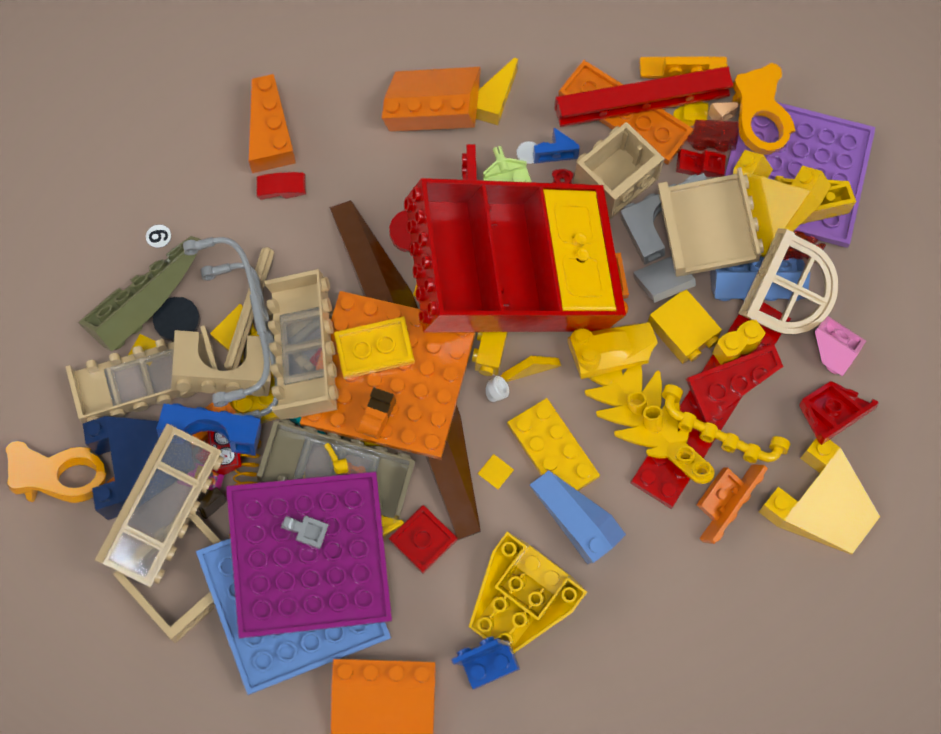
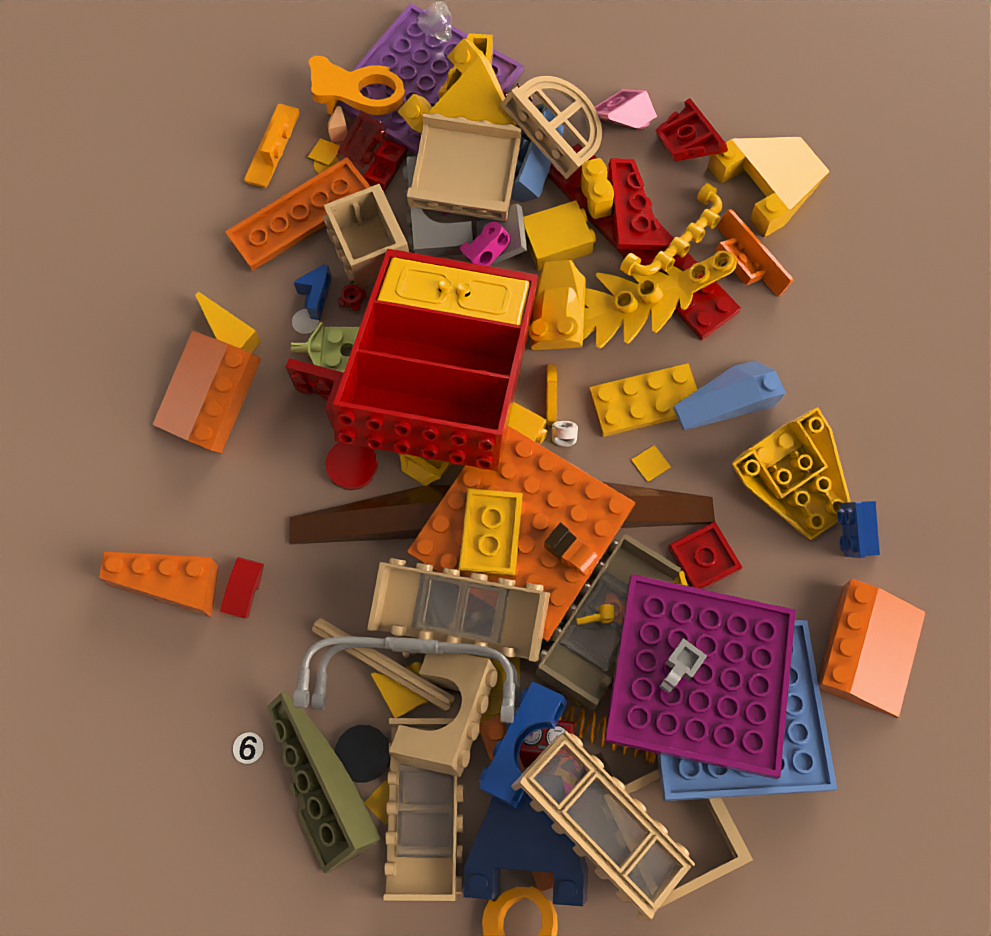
camera: 65 degrees left, 0 degrees up
(643, 96) = (294, 189): red tile -> none
(643, 267) = (487, 245): none -> dark pink leg
(857, 153) = (436, 21): none -> clear helmet

